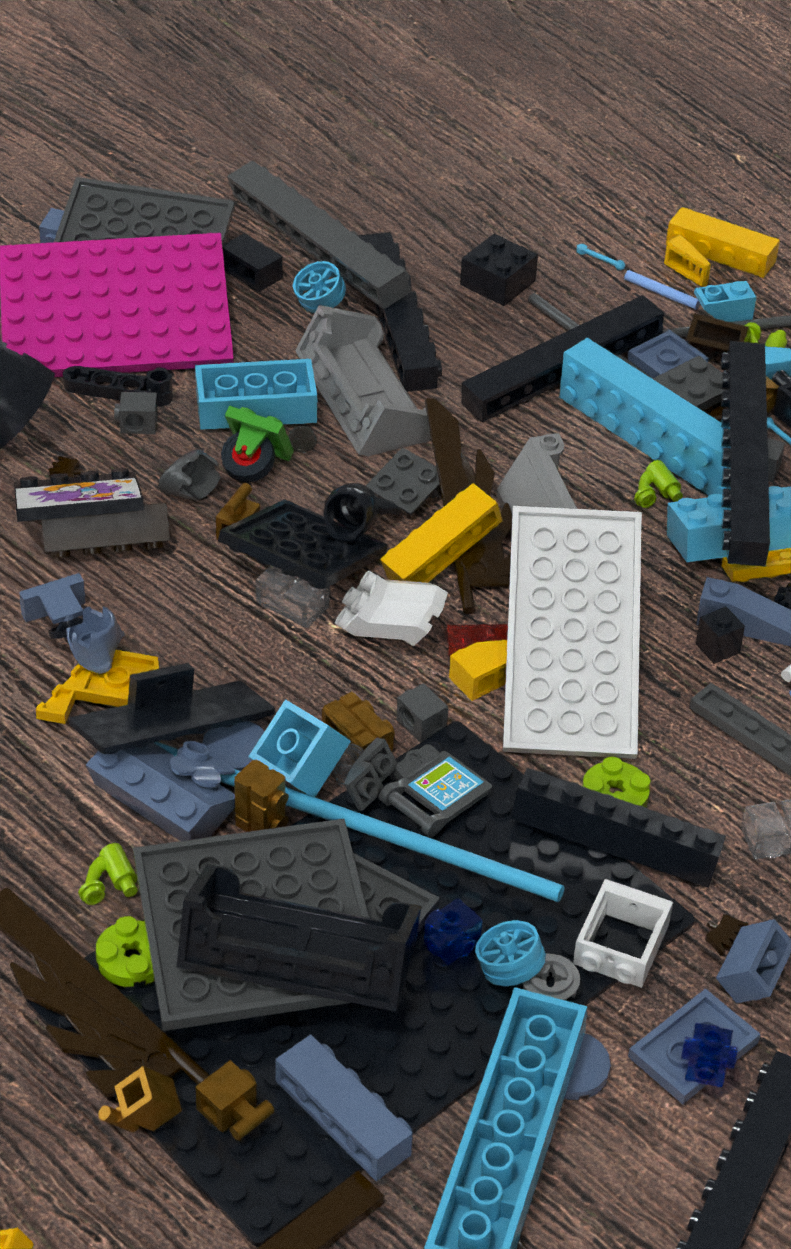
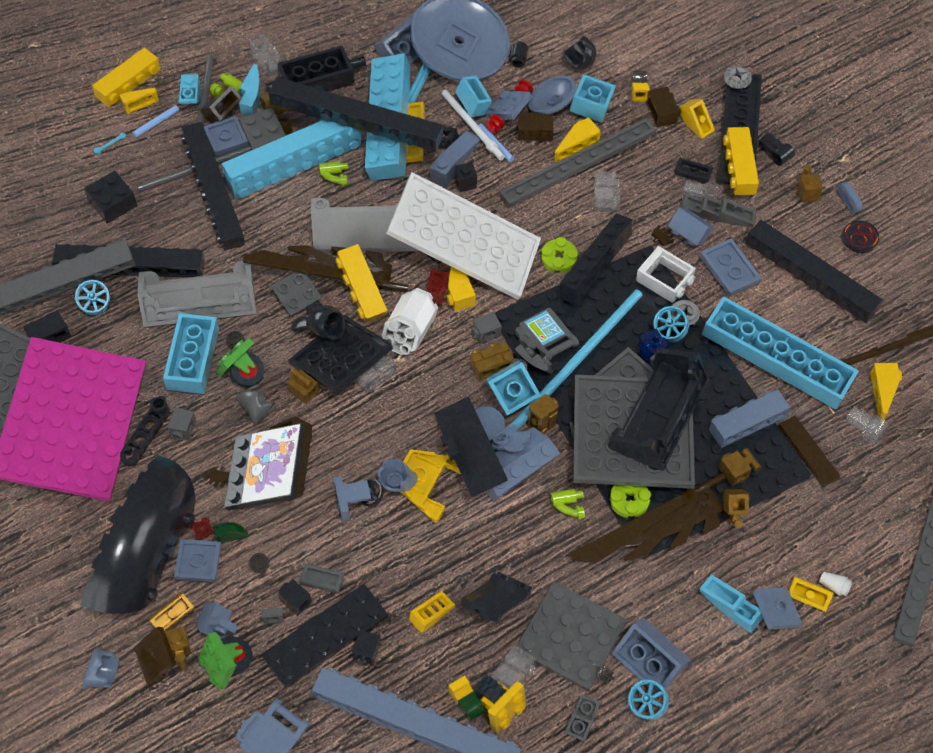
camera: 75 degrees left, 15 degrees up
(709, 1054) = (749, 258): clear blue brick -> none

